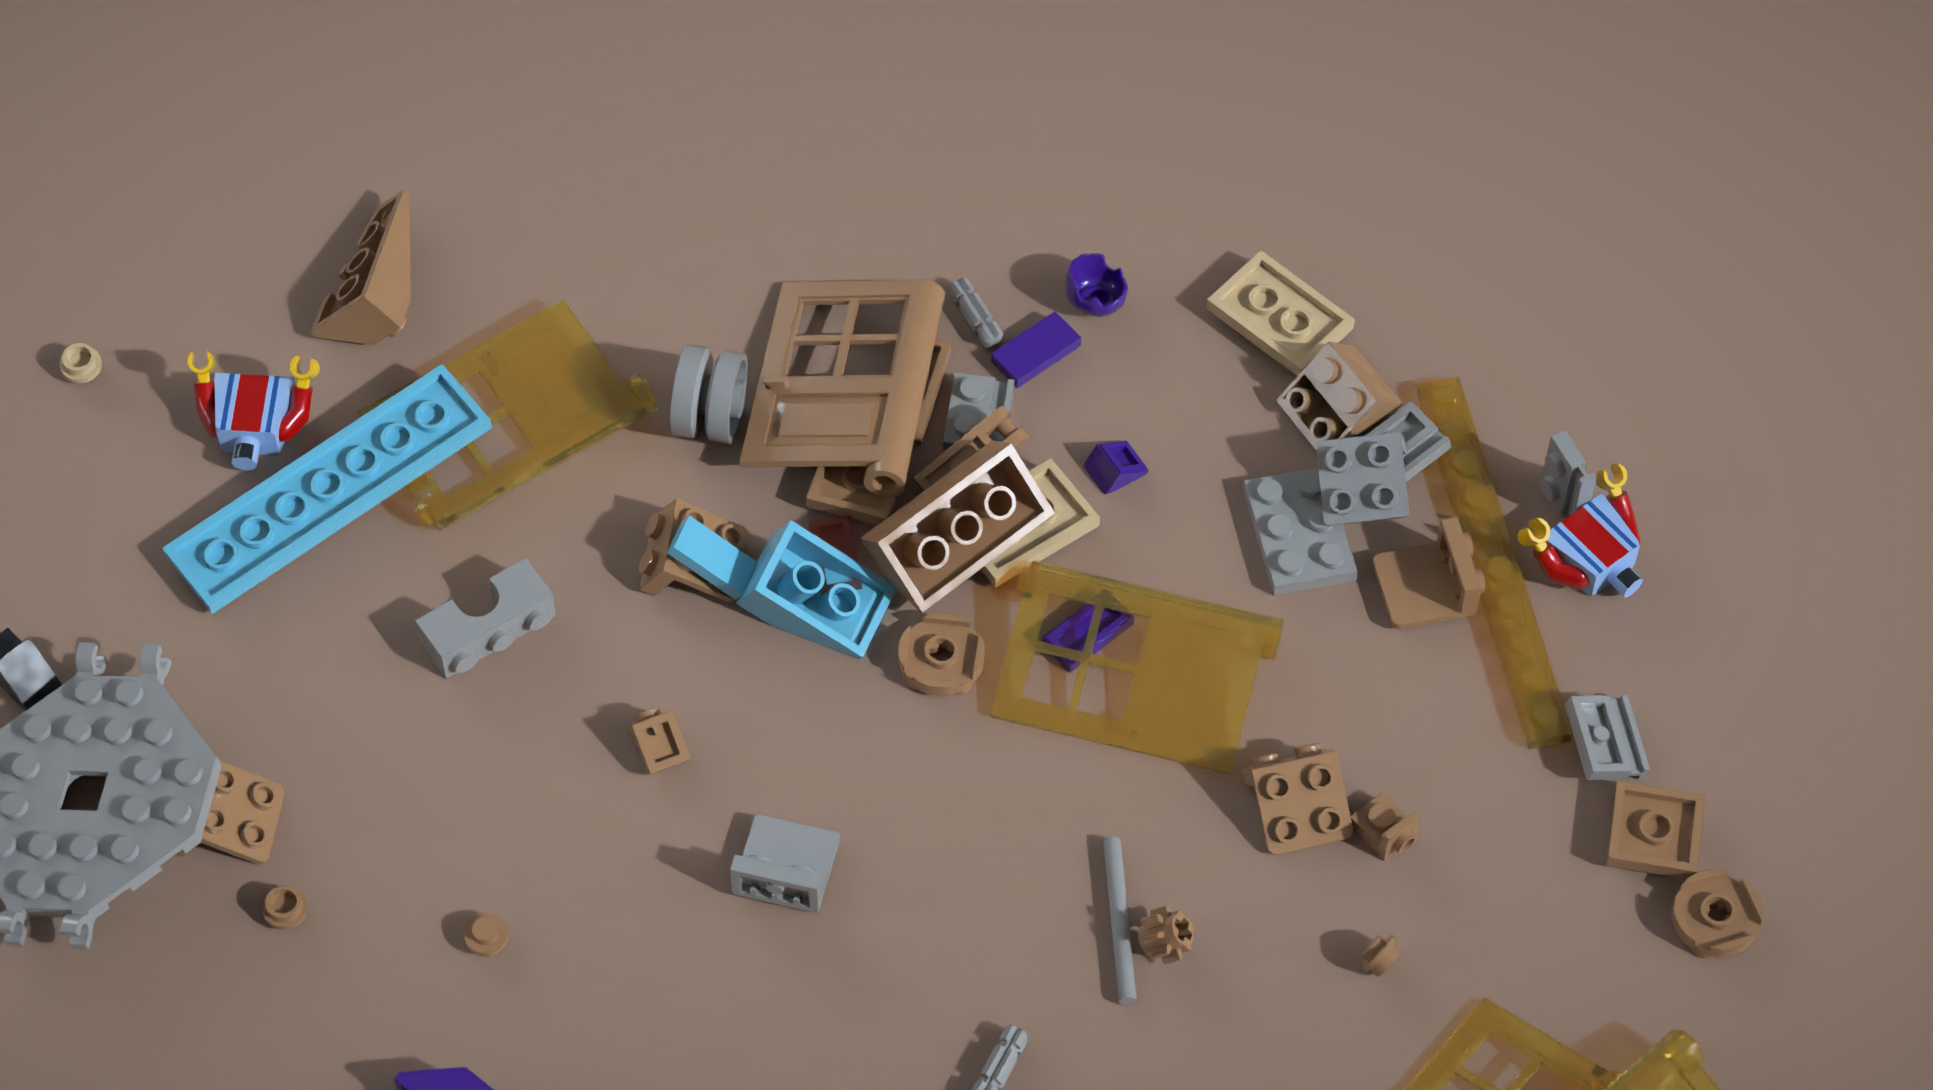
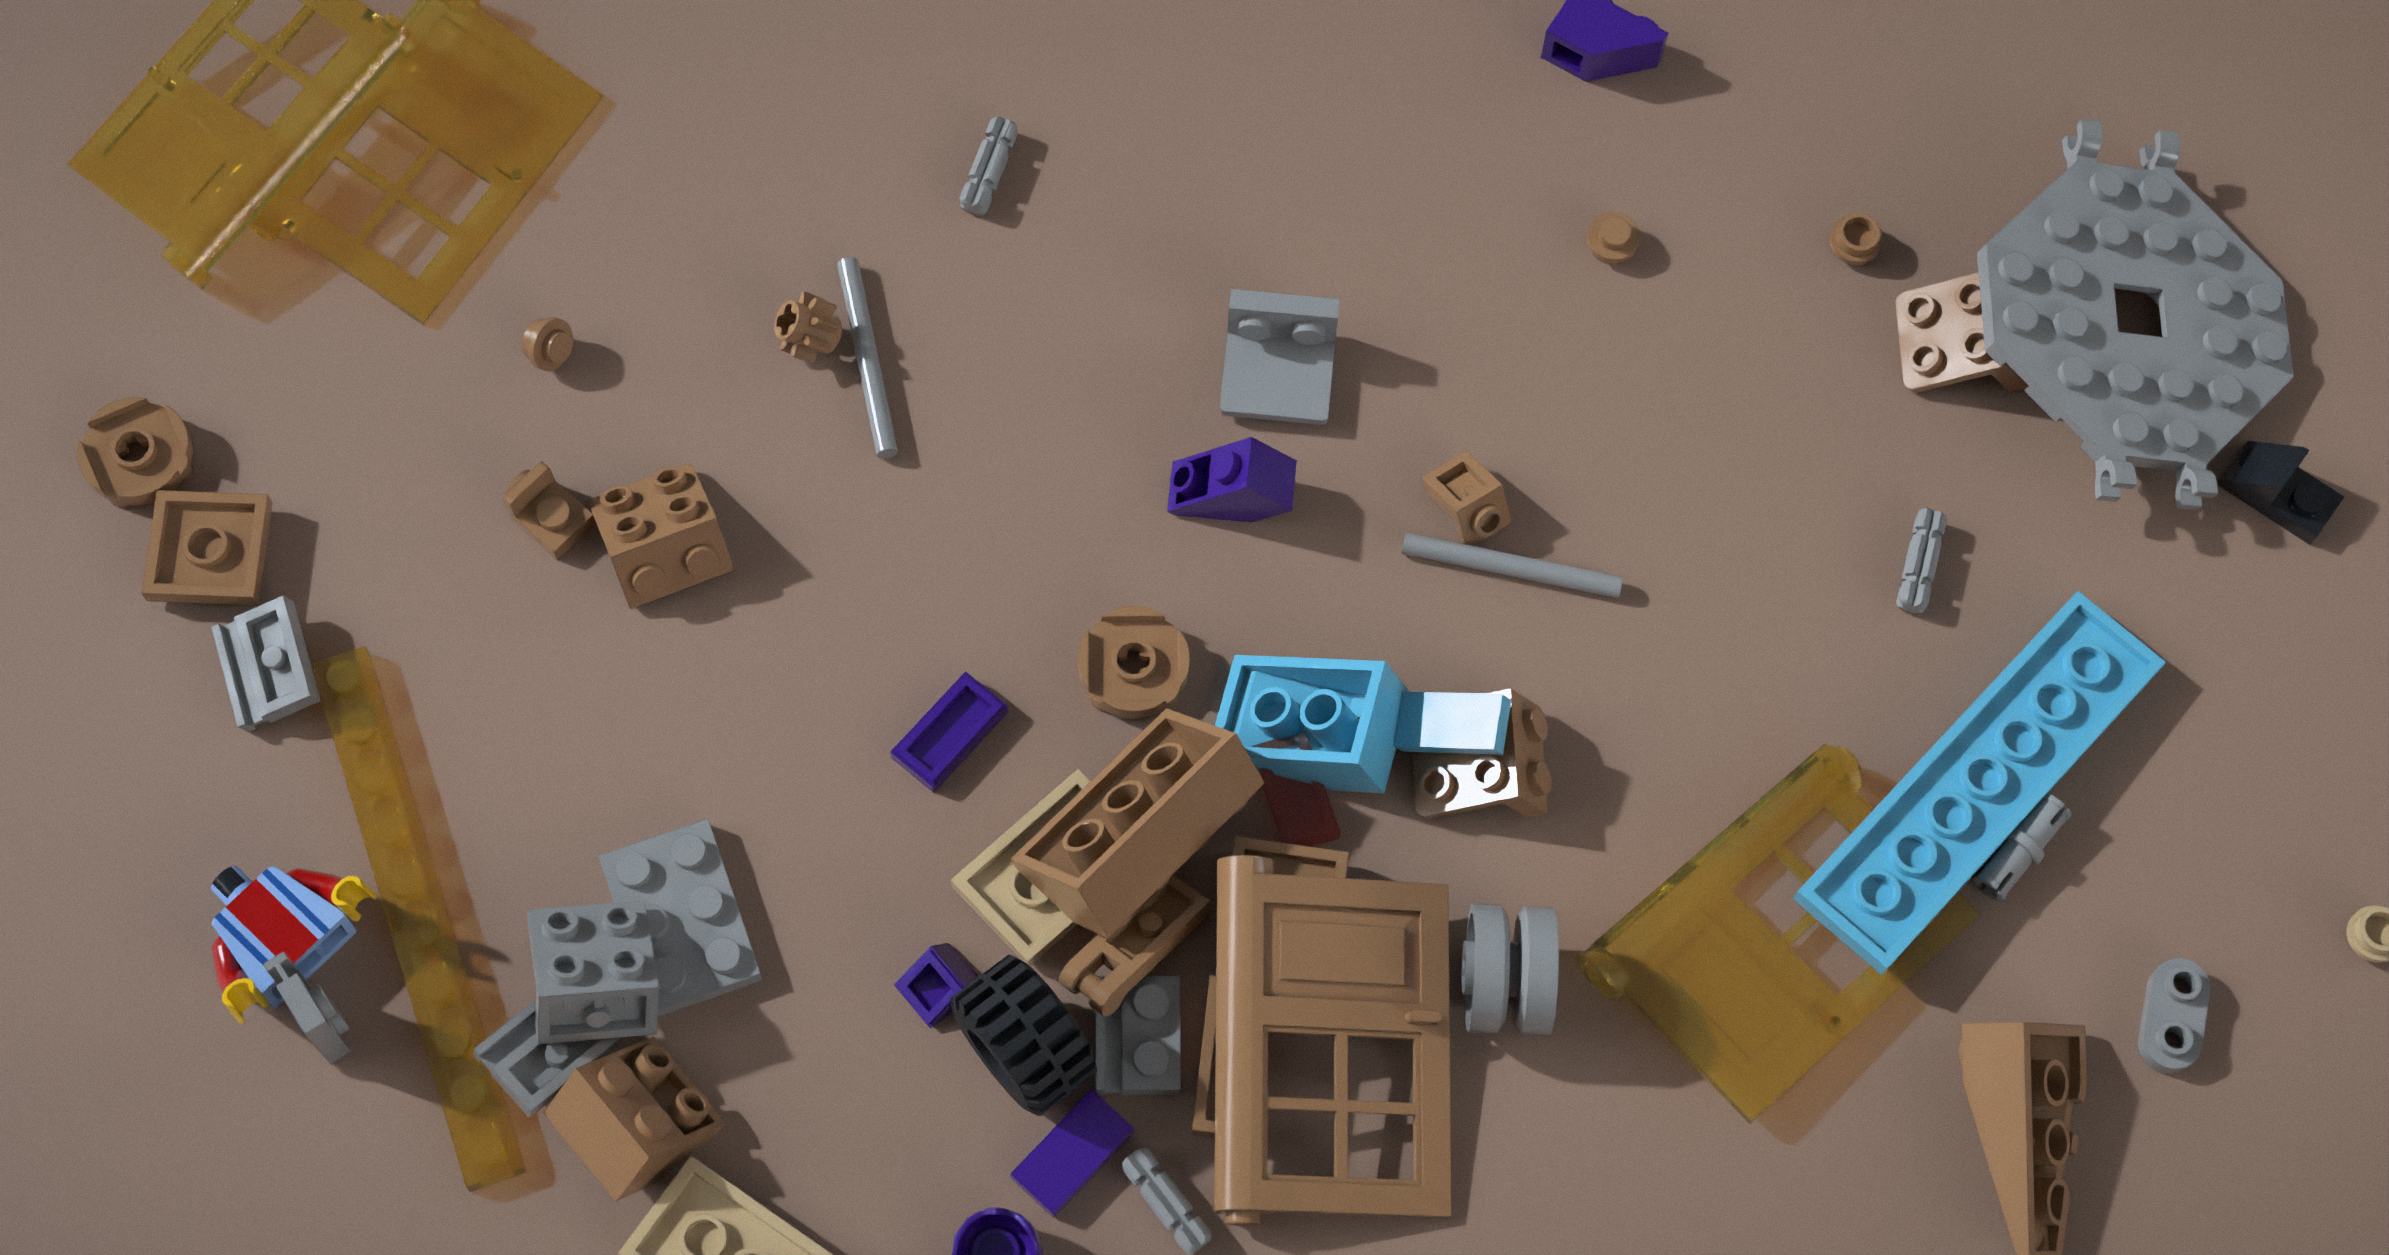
camera: 170 degrees right, 10 degrees up
(245, 331) = (2174, 1012): none -> light grey plate
(253, 411) = (2125, 878): torso -> none
(309, 441) = (2022, 848): none -> light grey pin
(317, 654) = (1921, 560): none -> light grey axle
(461, 640) = (1753, 592): light grey arch -> none
(634, 693) = (1512, 565): none -> light grey bar
(841, 769) = (1233, 483): none -> dark purple slope
(1061, 392) = (1024, 1035): none -> black tyre
(1188, 681) = (808, 673): clear yellow door -> none
(1430, 579) = (501, 854): medium nougat bracket -> none

